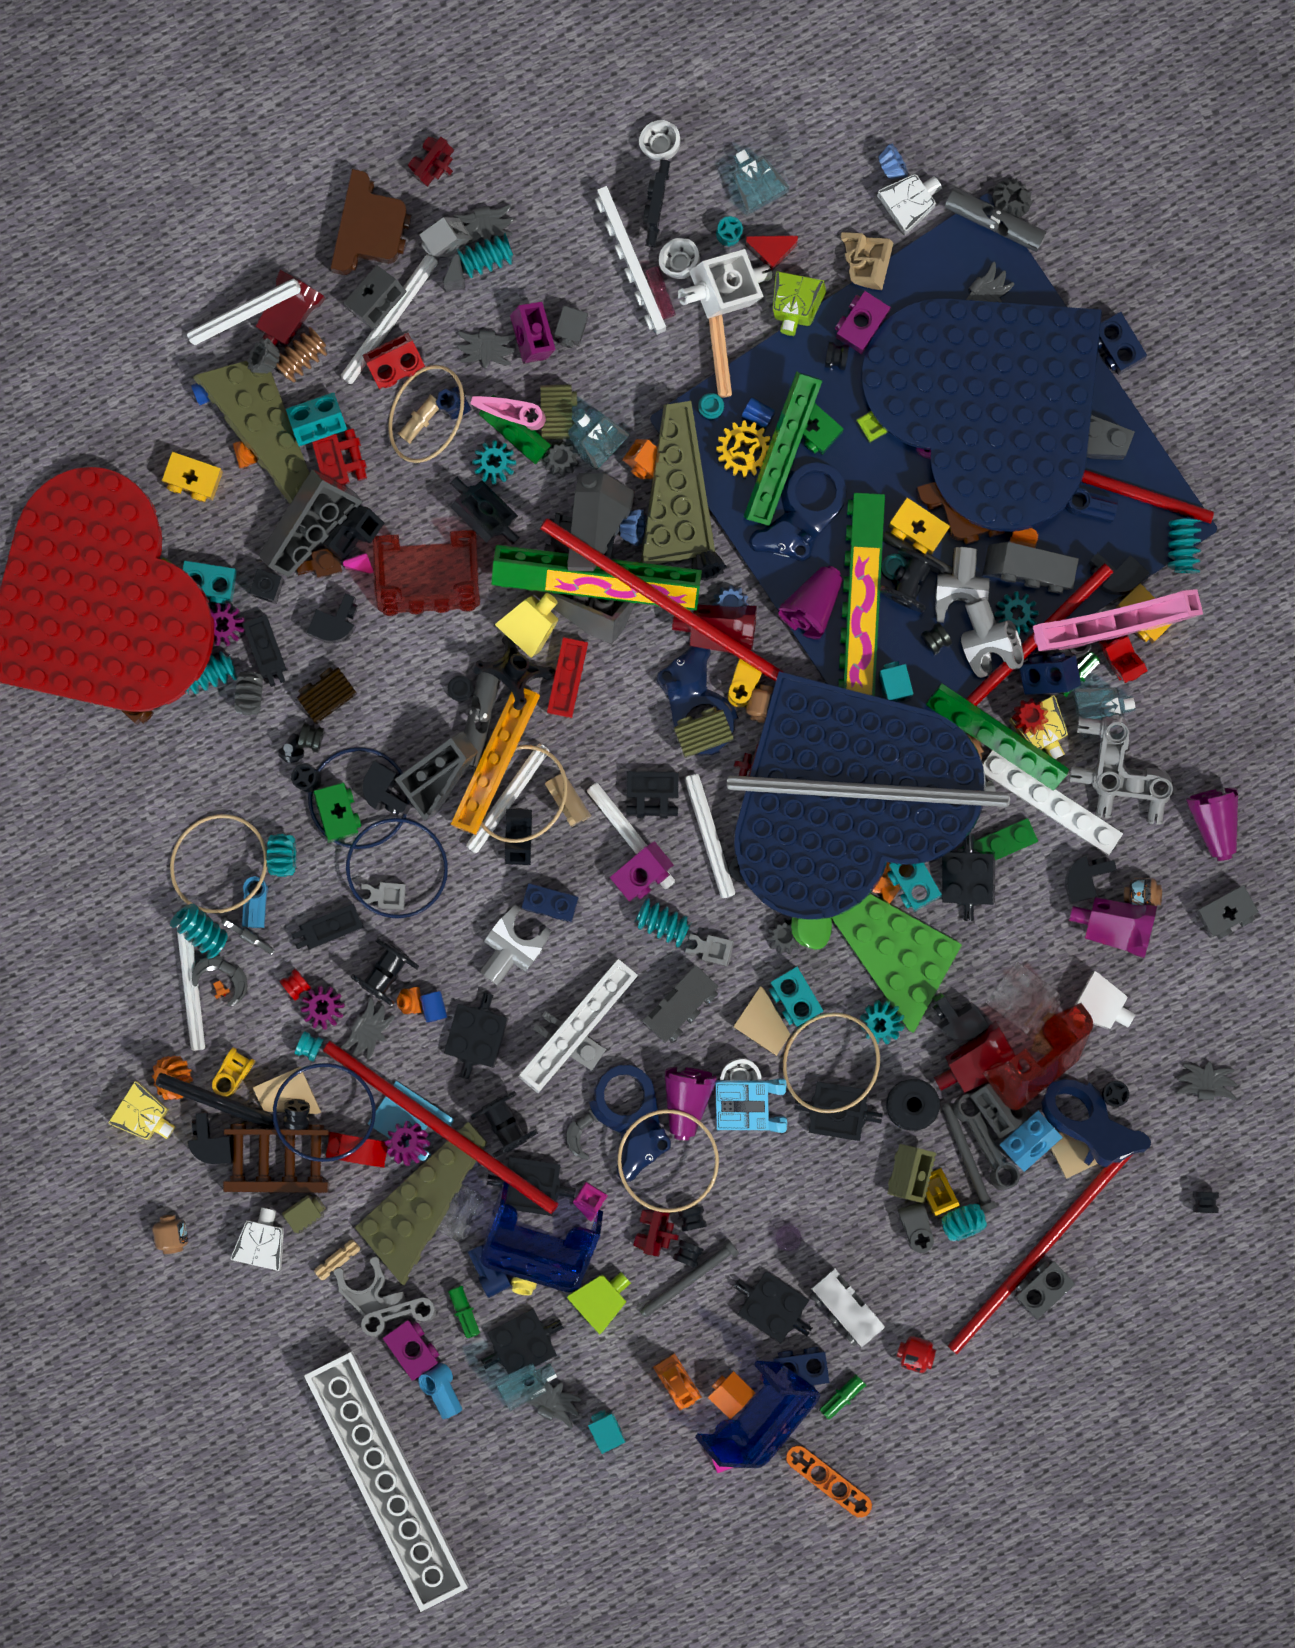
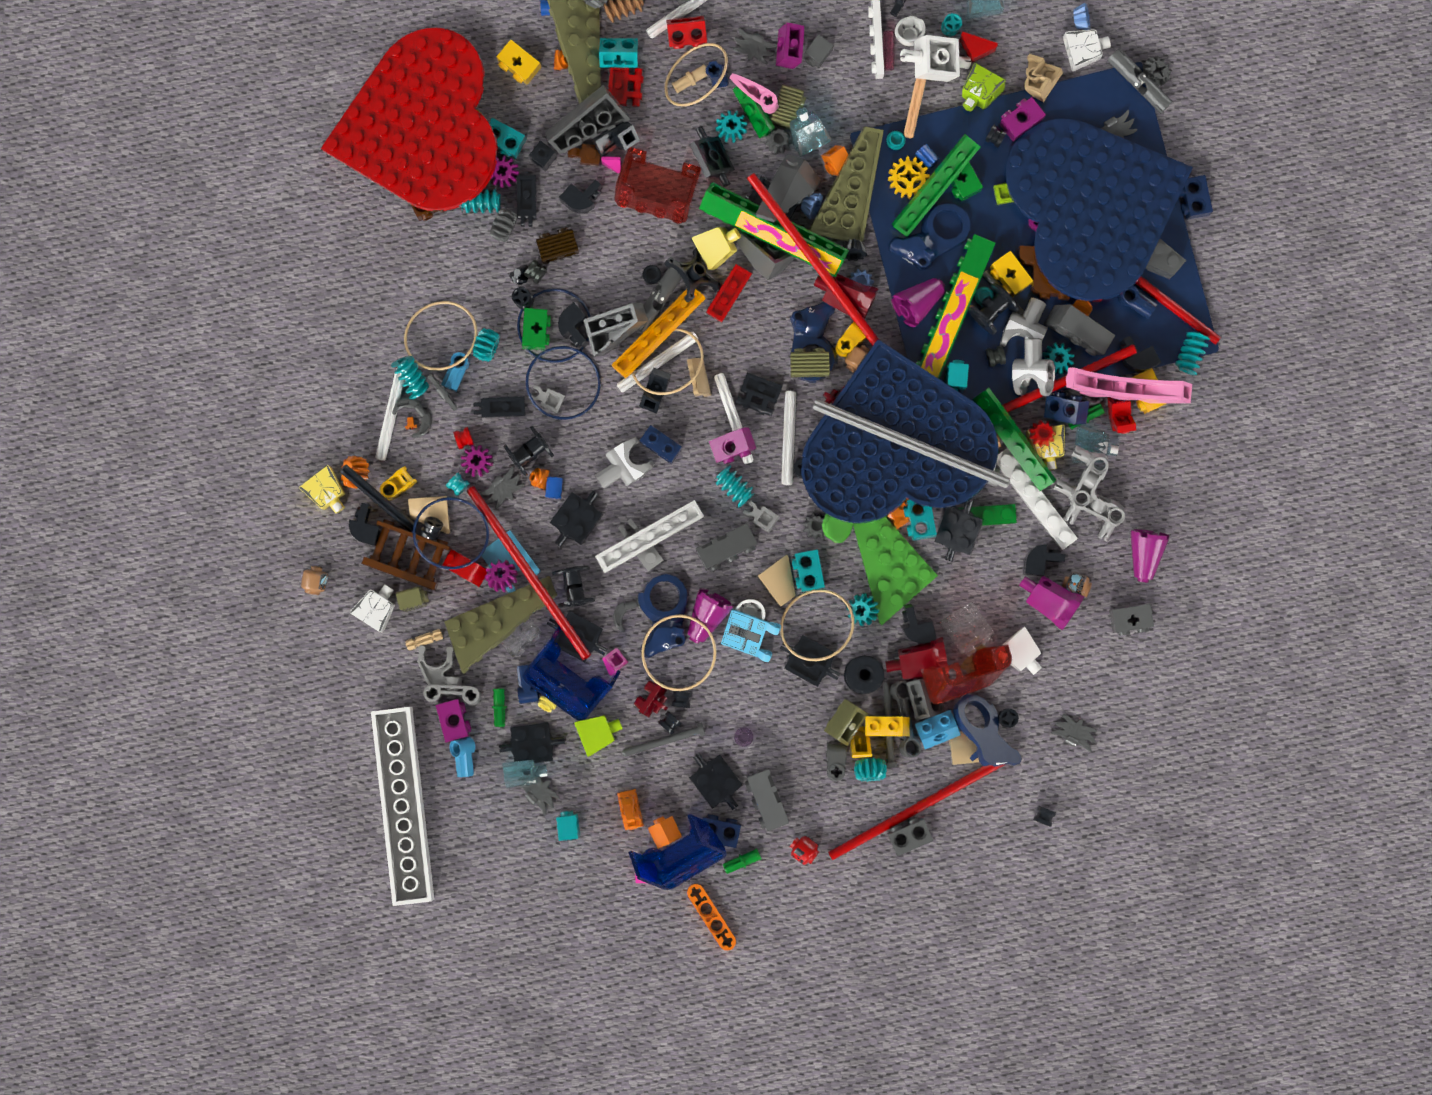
camera: 15 degrees right, 0 degrees up
(966, 1159) = (887, 726): none -> yellow brick

